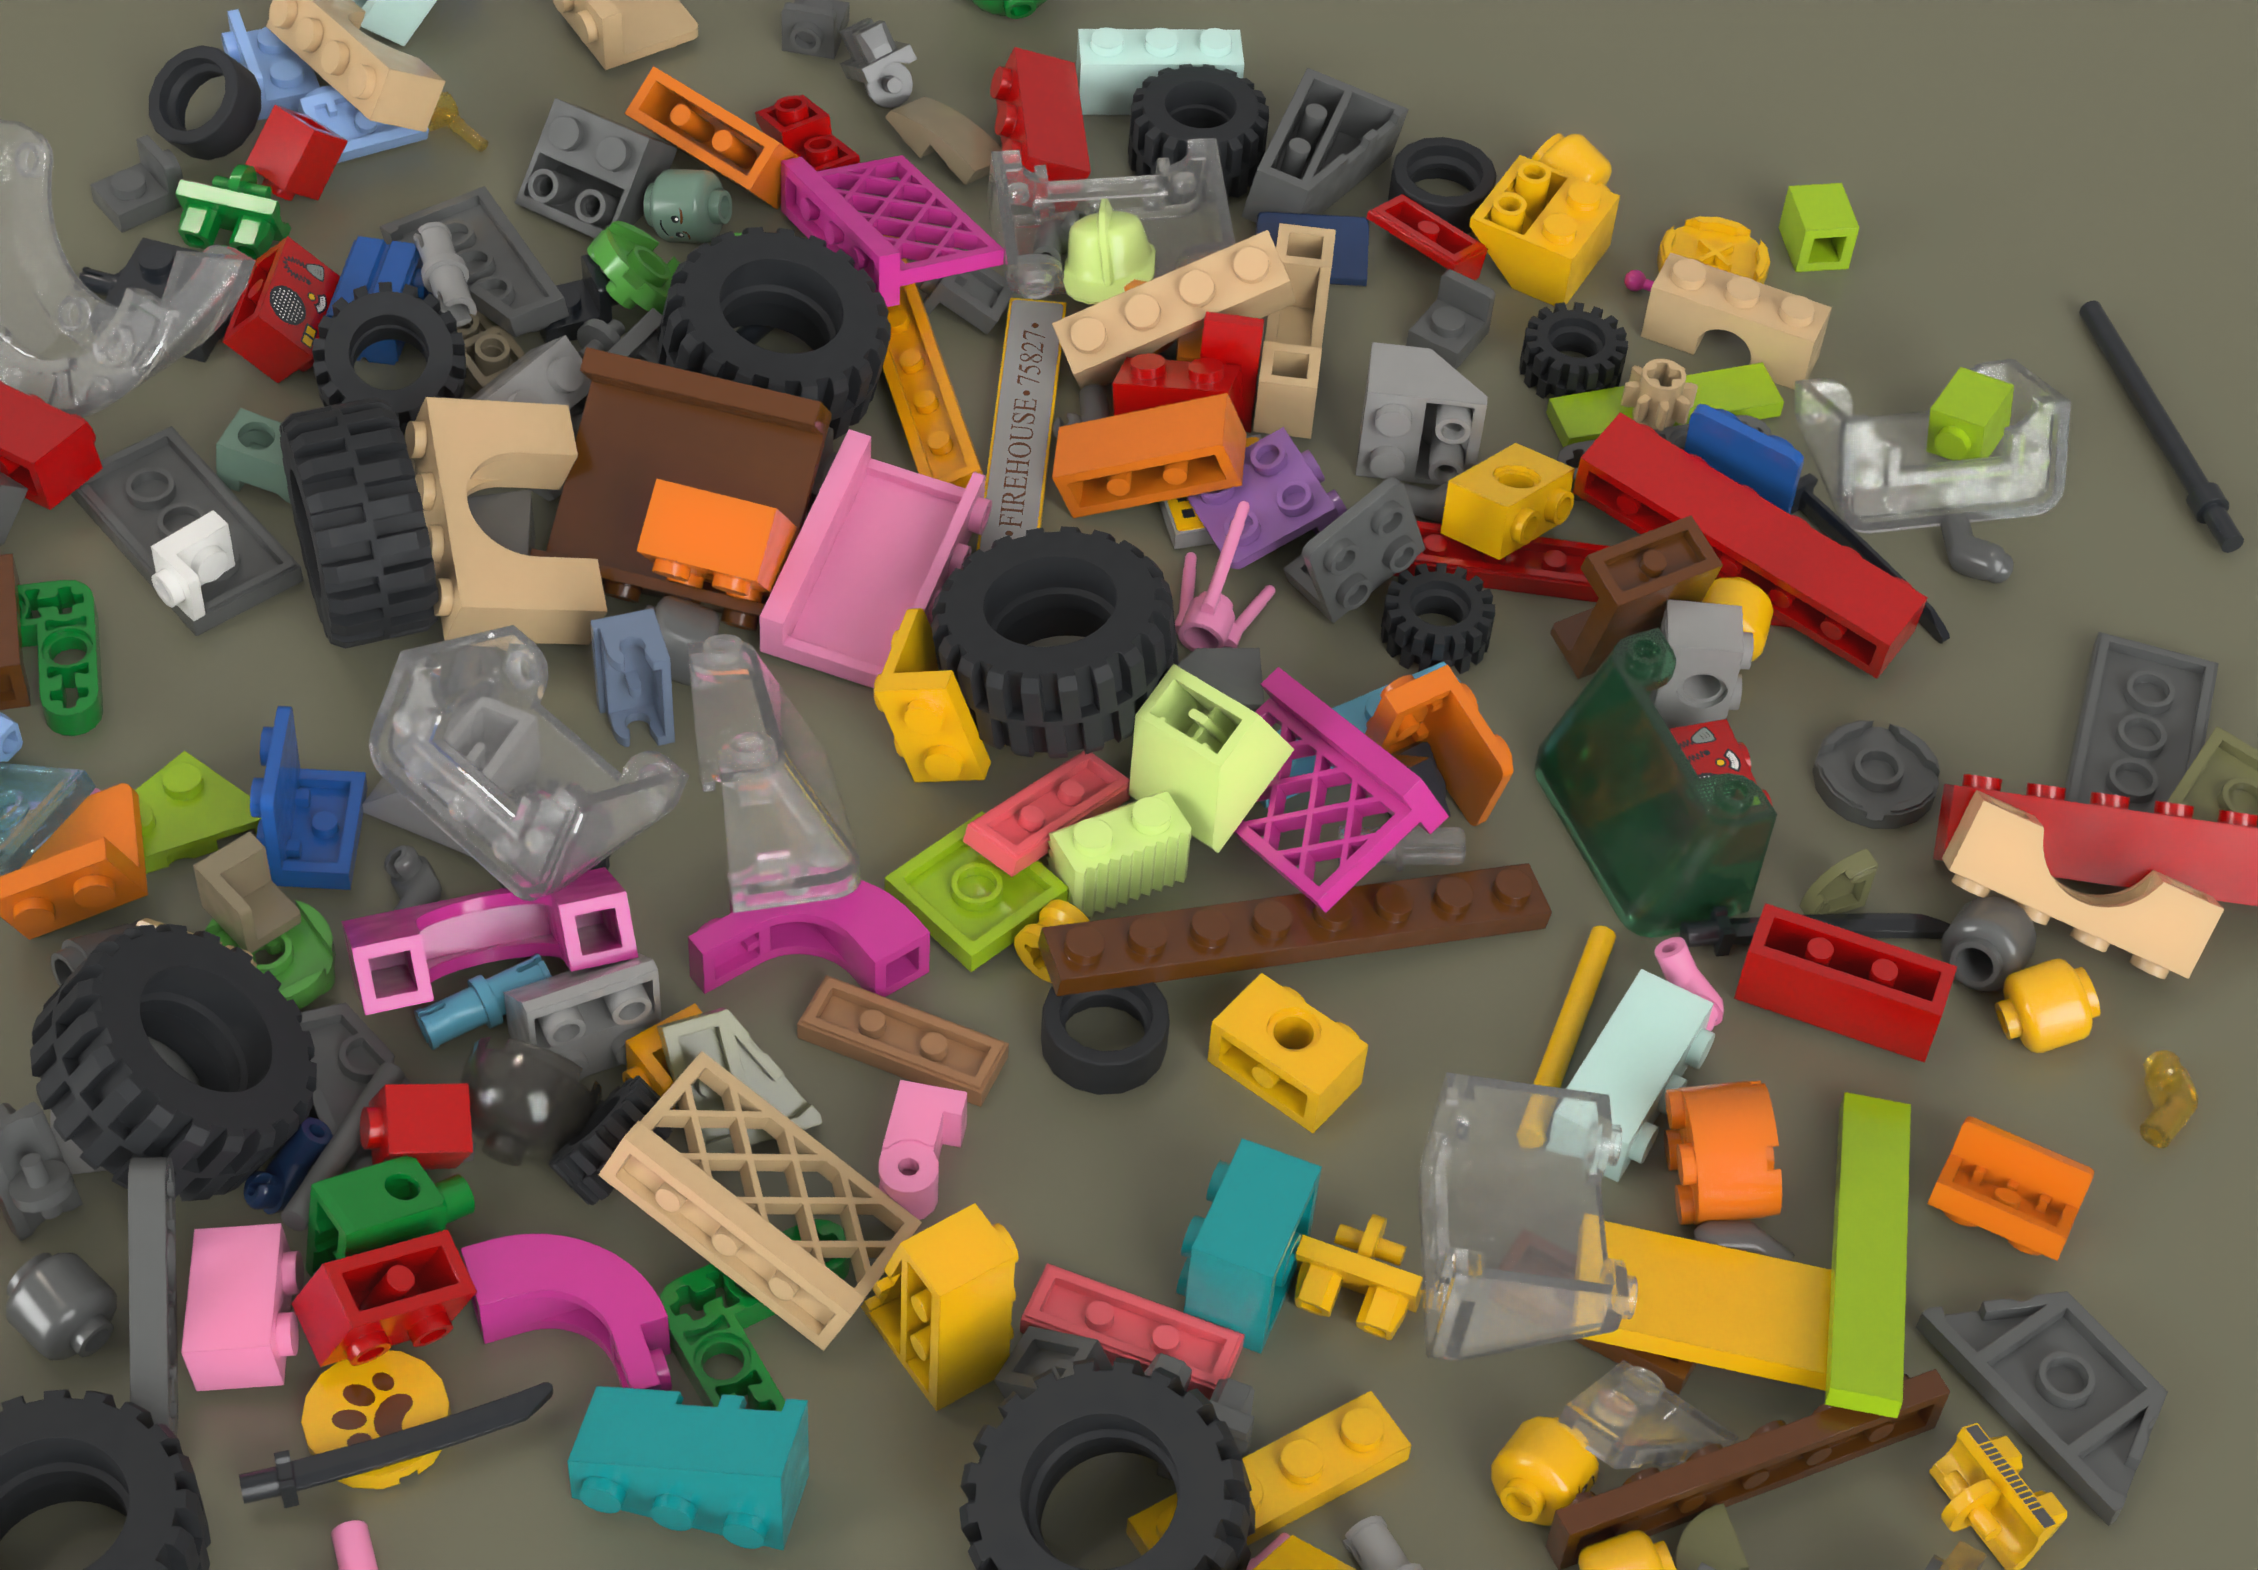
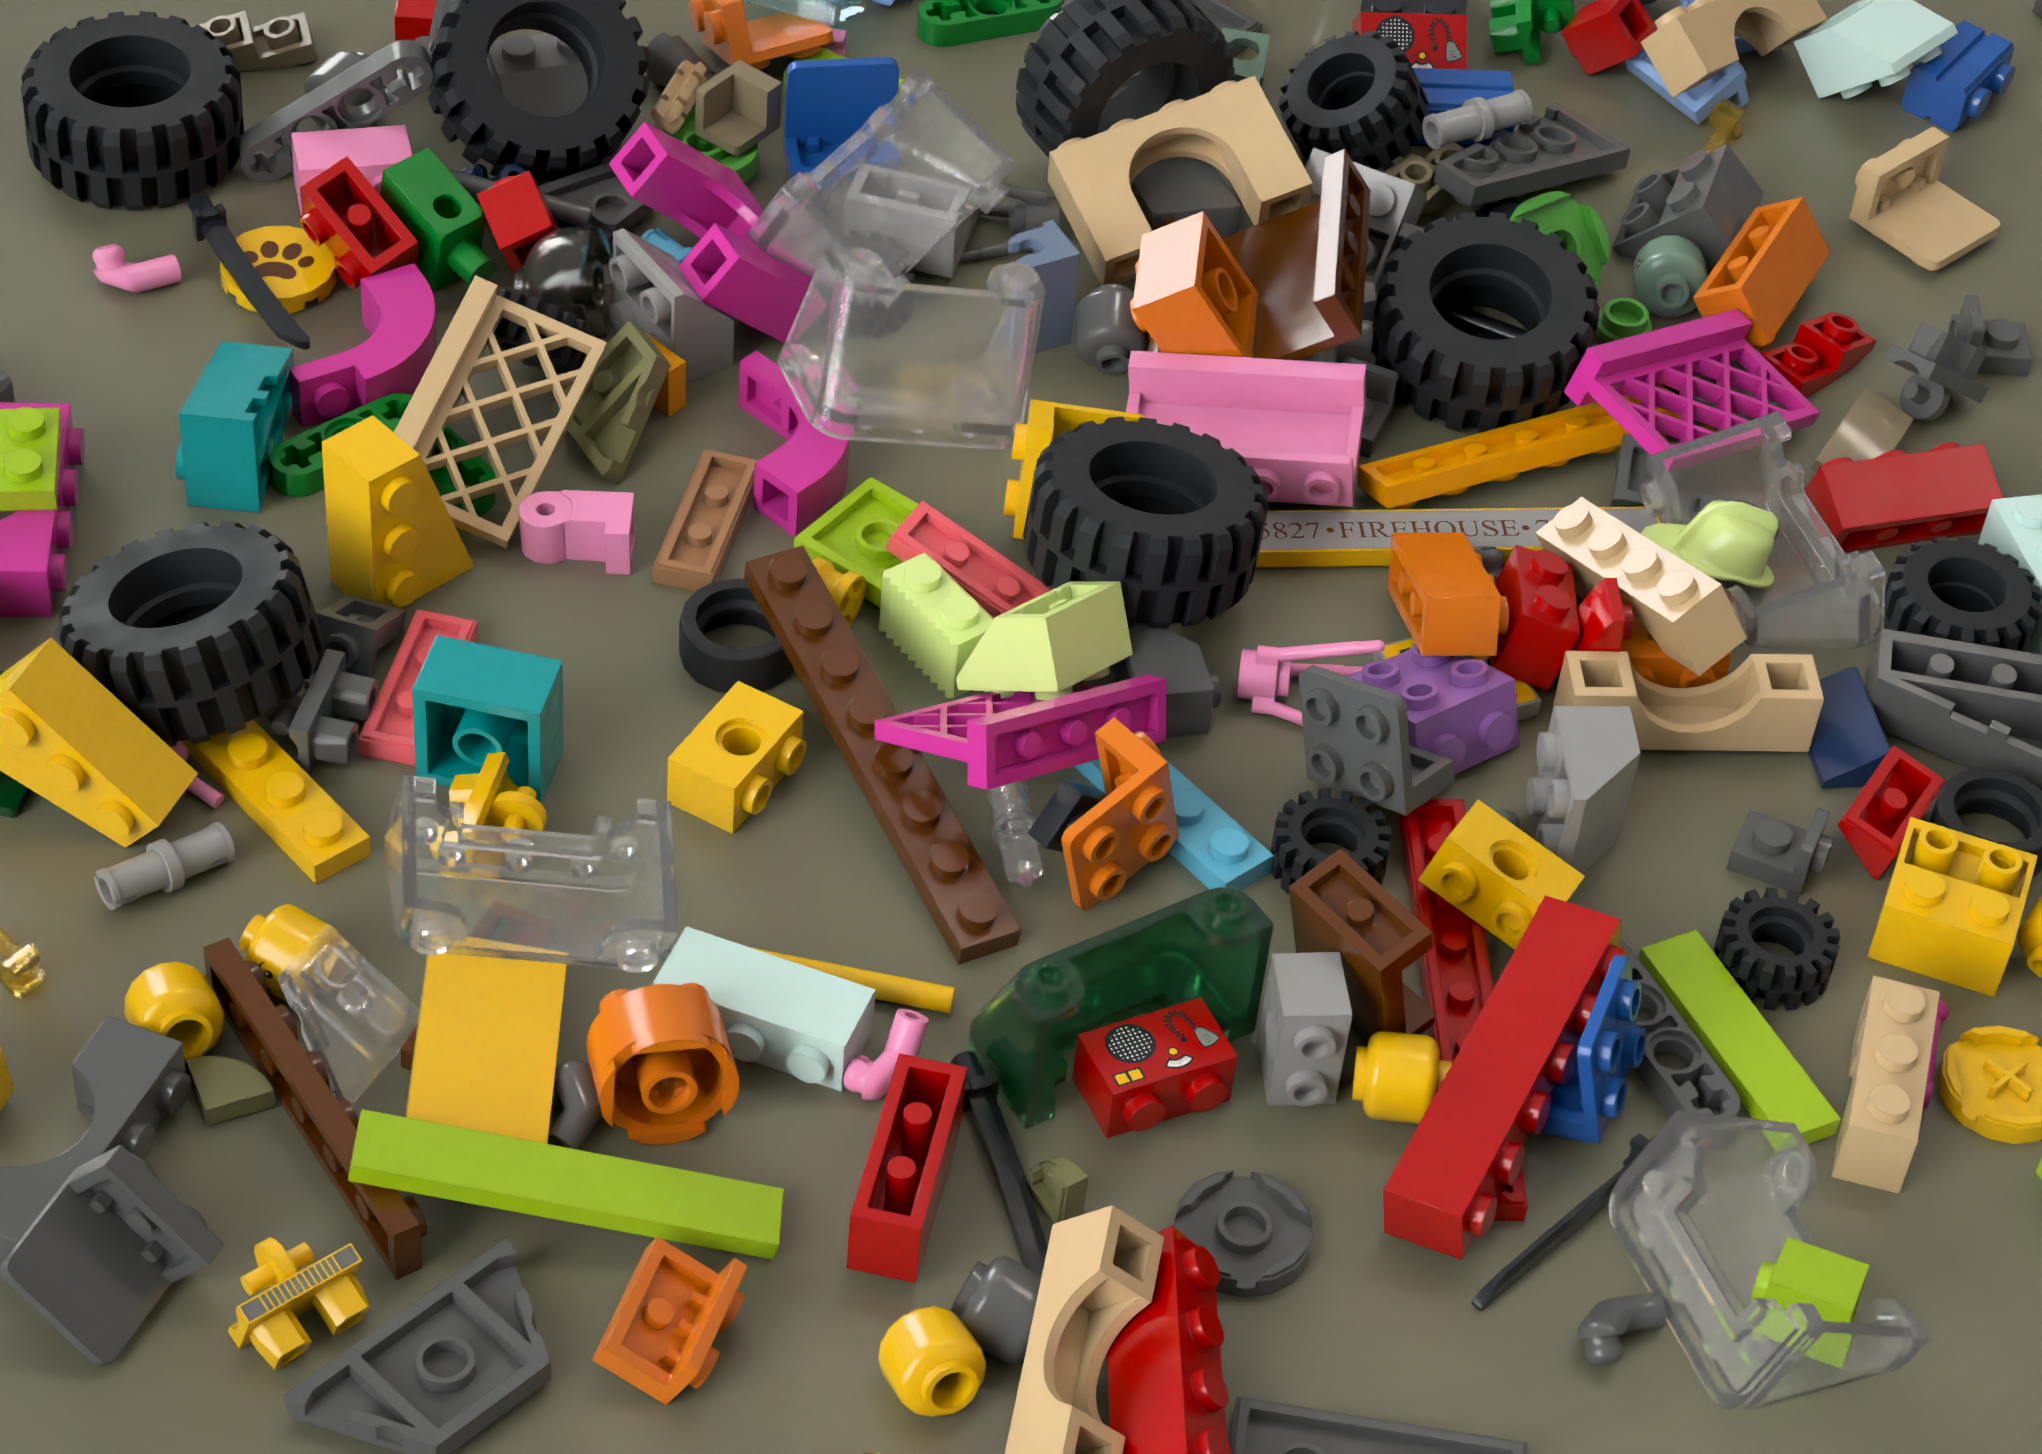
camera: 80 degrees right, 5 degrees down
(1659, 394) = (1715, 999): tan gear -> none

